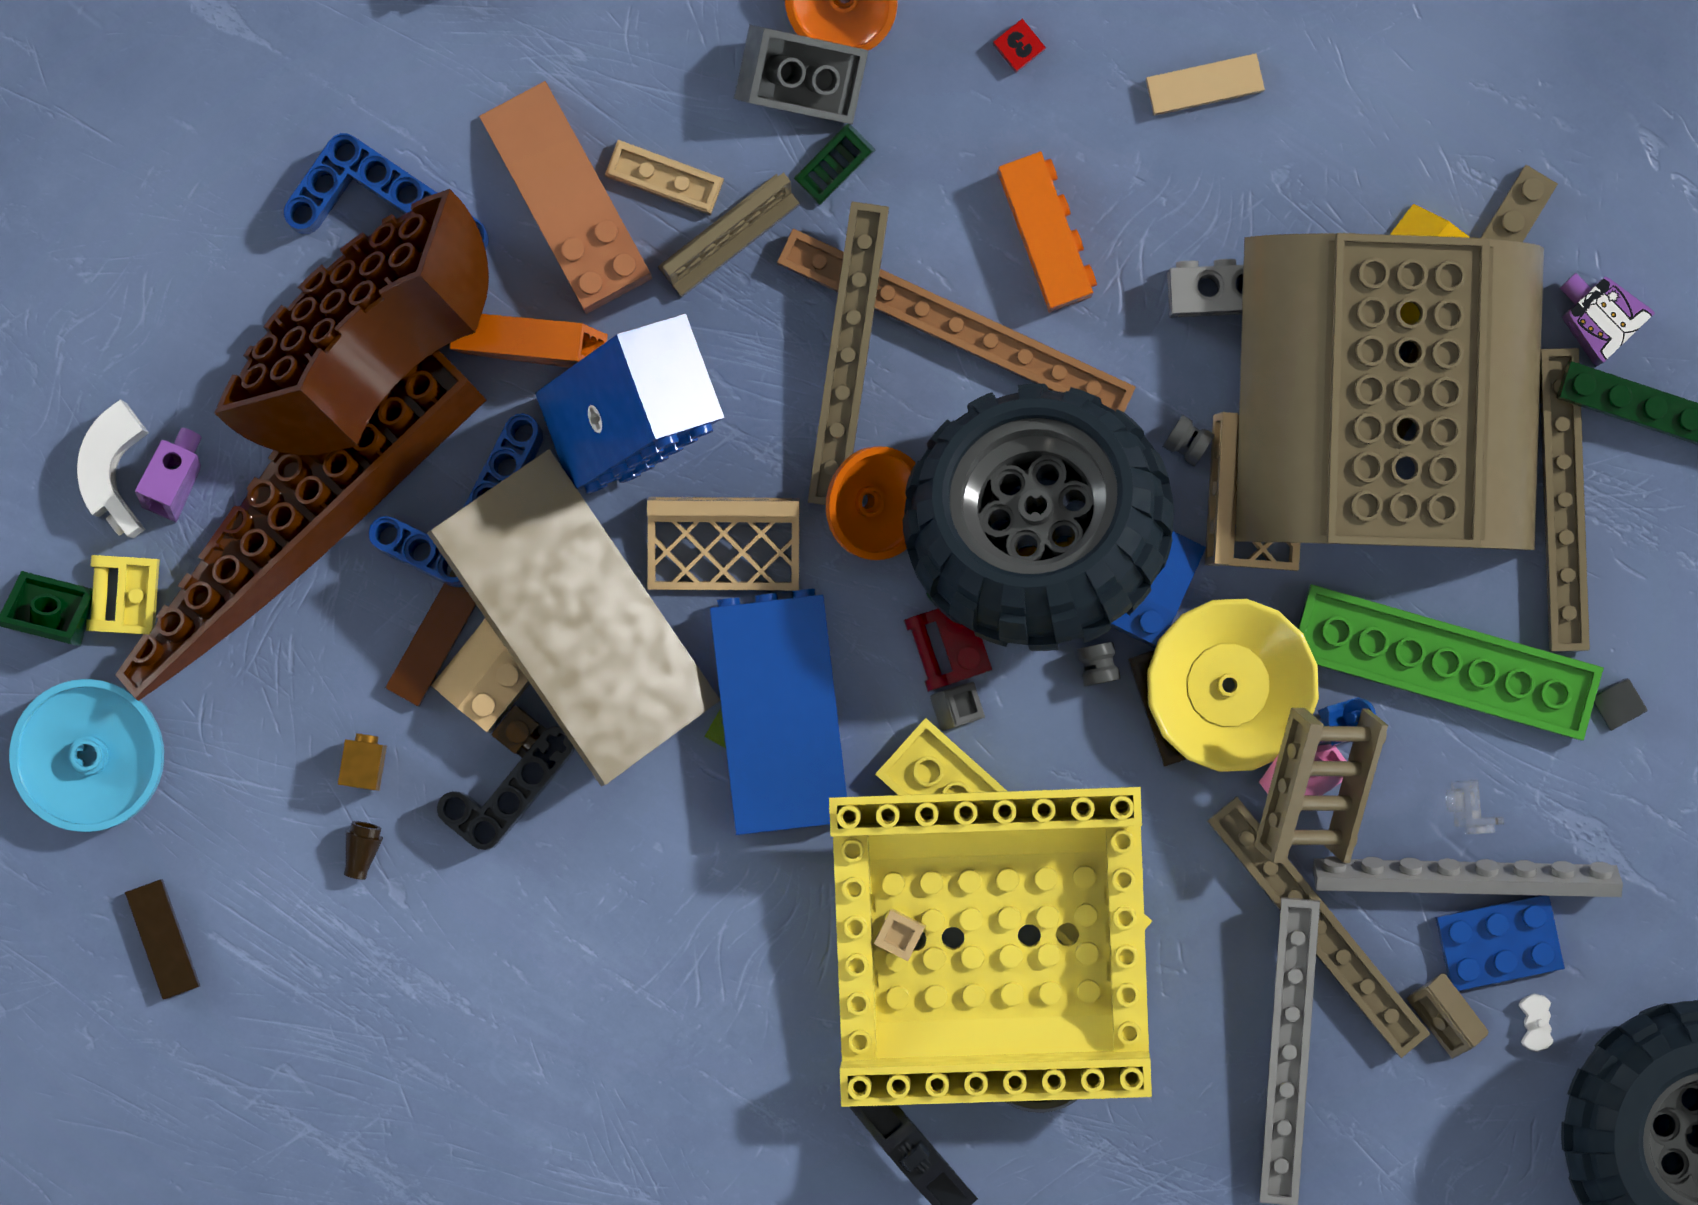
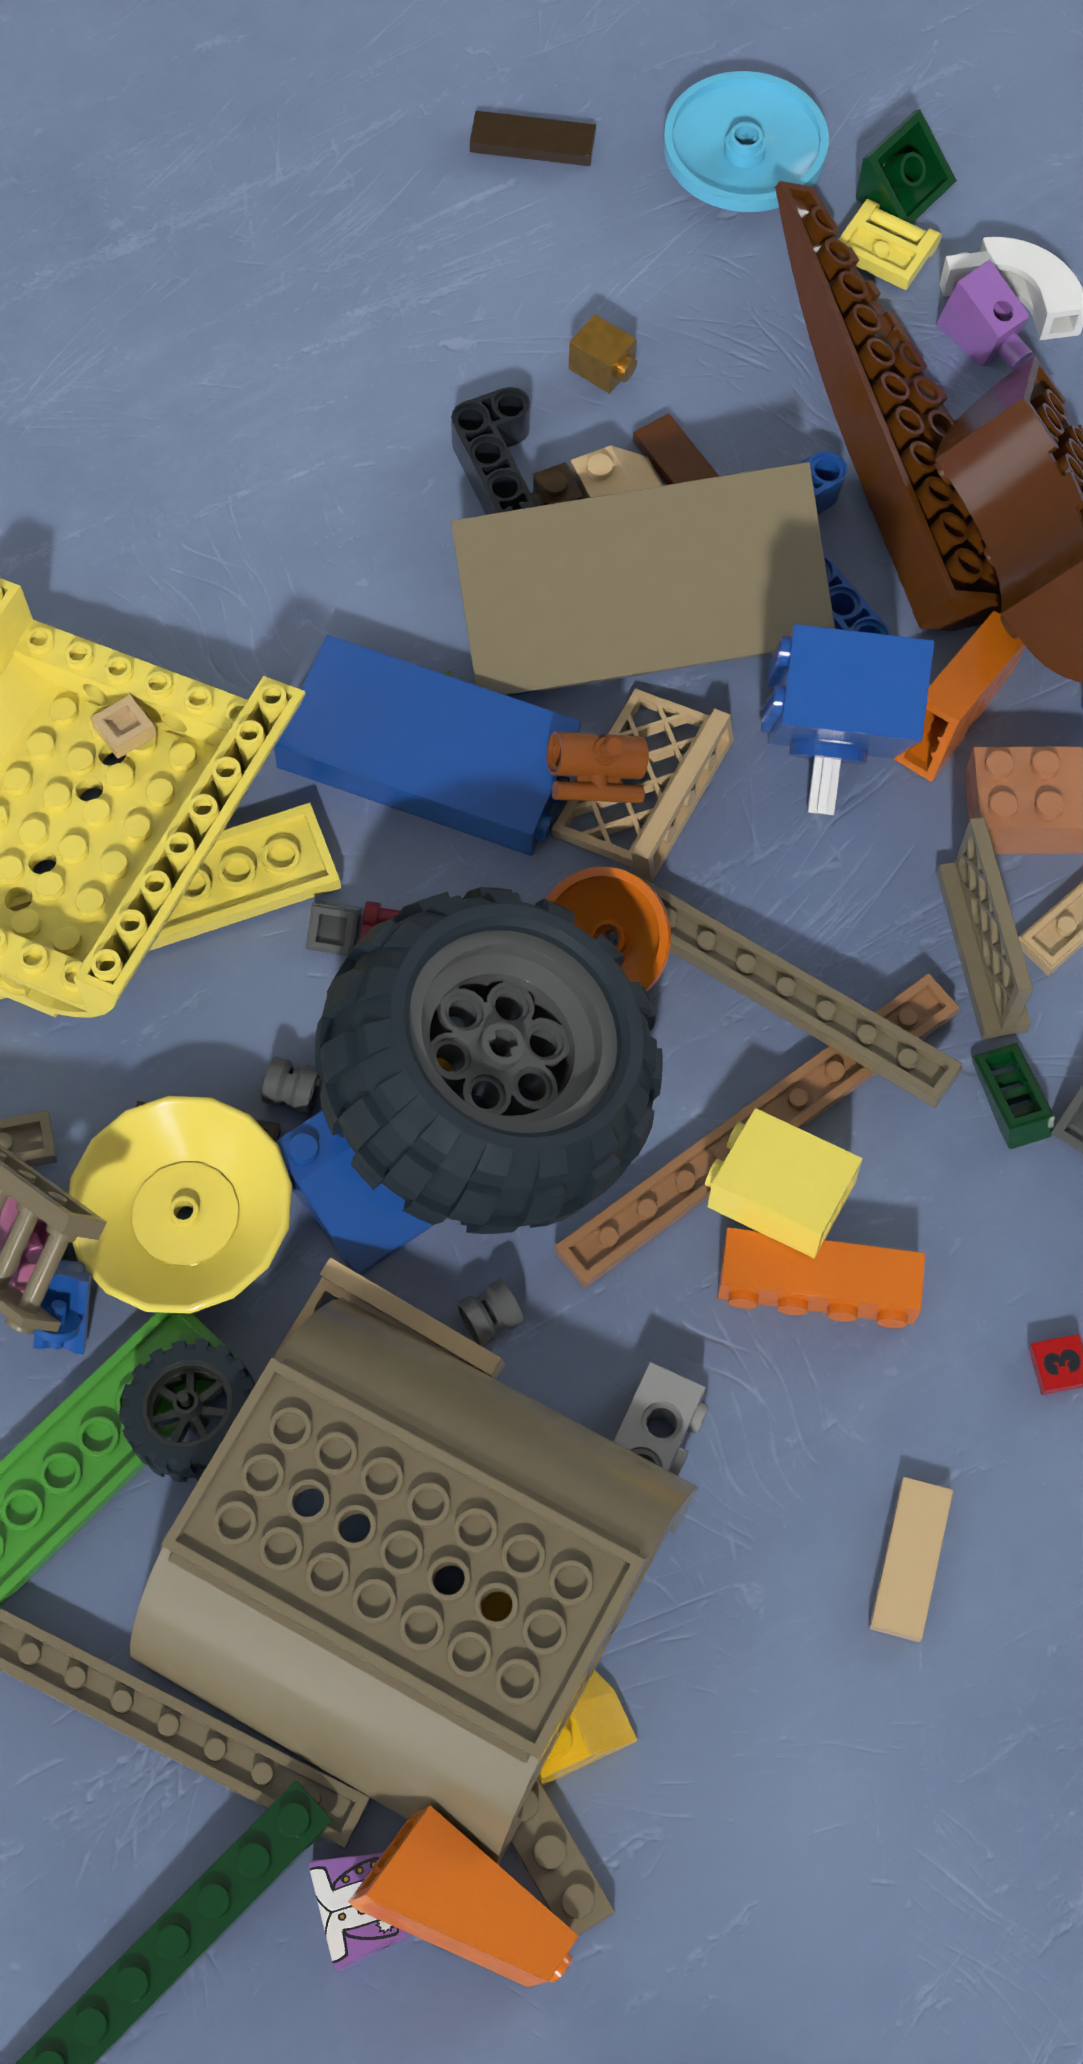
camera: 120 degrees right, 20 degrees down
(361, 847) = (521, 324): dark brown cone -> none
(745, 574) = (597, 766): none -> dark orange pin
(1002, 284) = (782, 1182): none -> light yellow brick
(1362, 631) = (155, 1382): none -> wheel
(1577, 262) = (464, 1902): none -> orange slope

